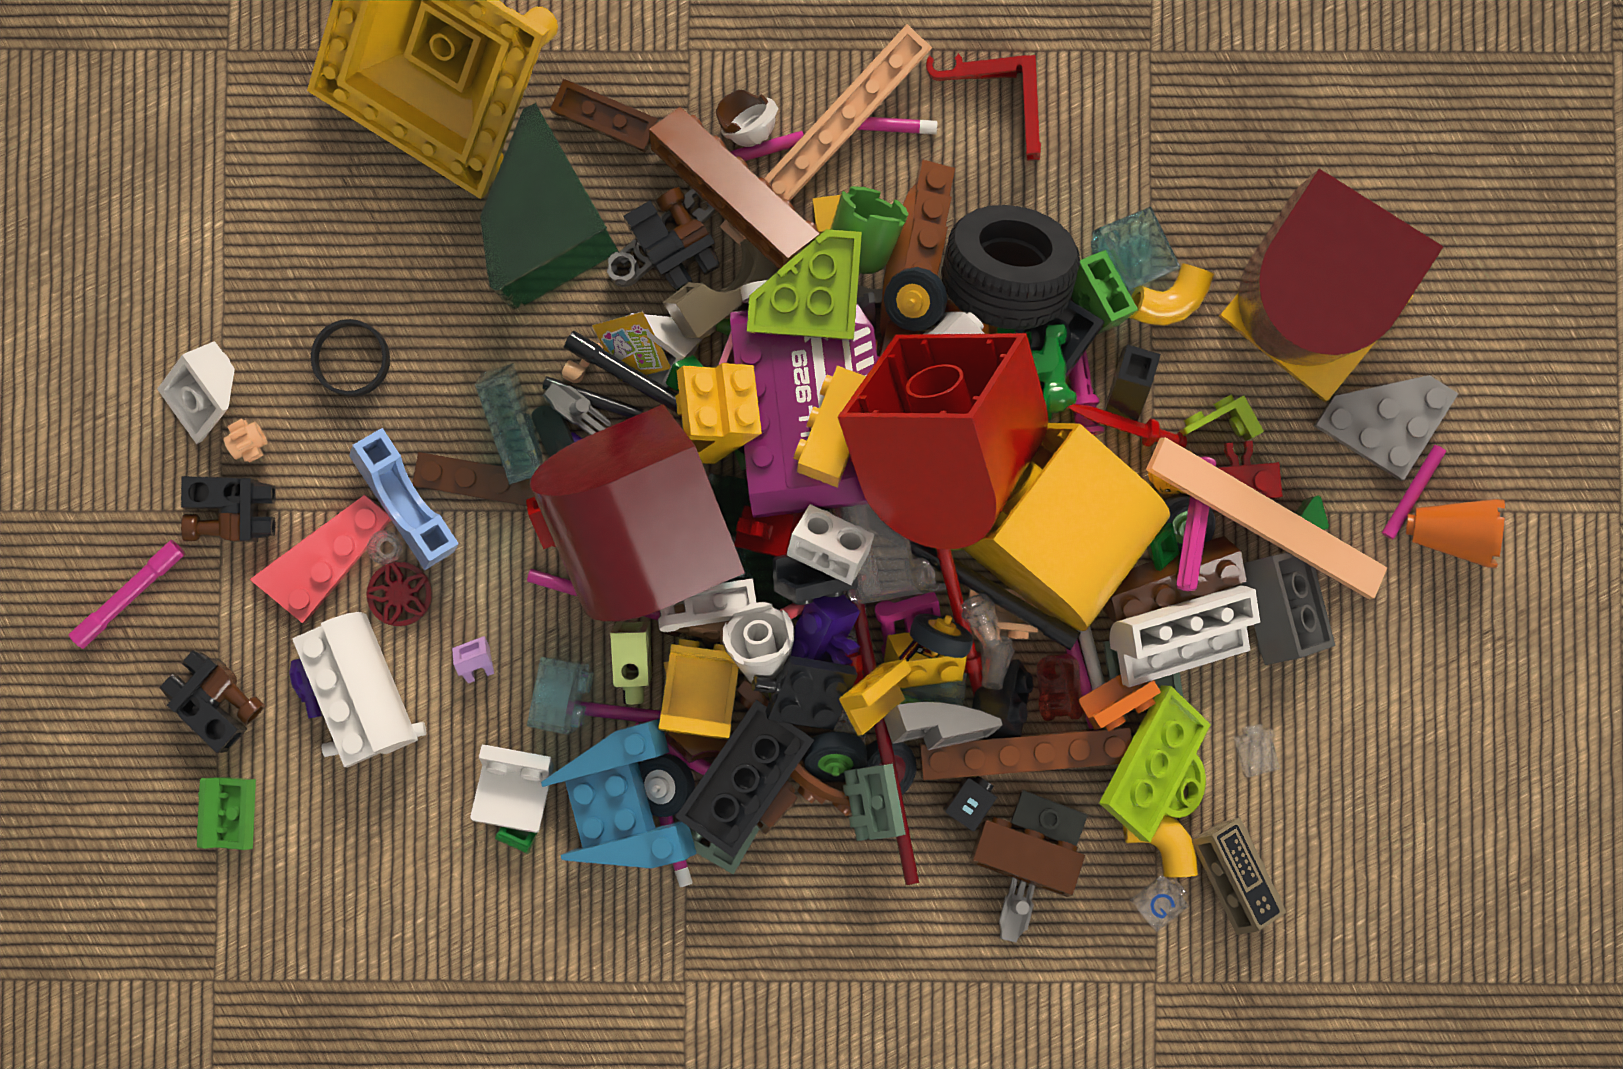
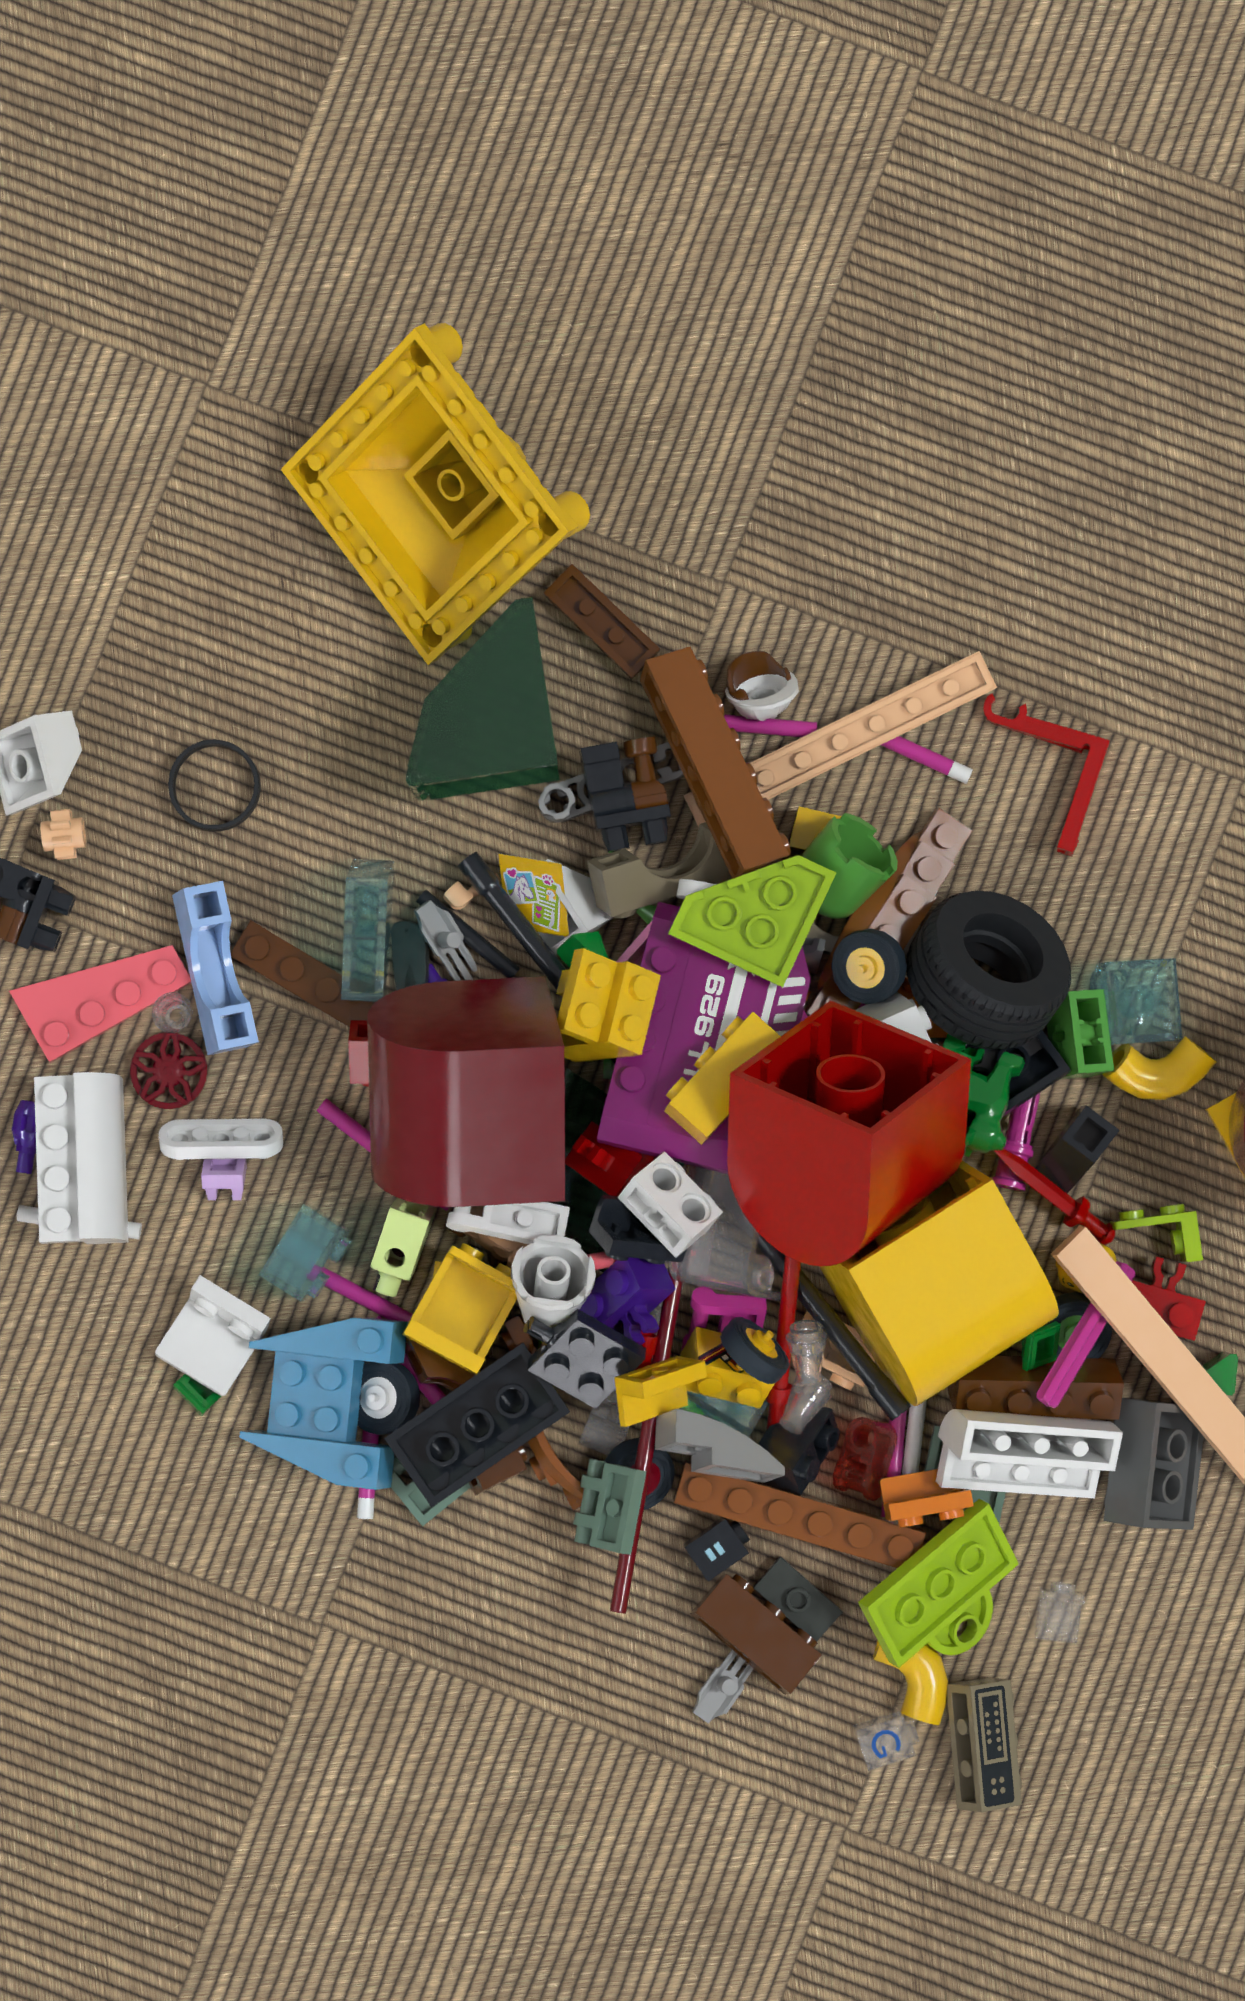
camera: 15 degrees right, 0 degrees up
(459, 631) = (220, 1138): none -> white plate
(833, 754) = (586, 1436): black wheel -> none

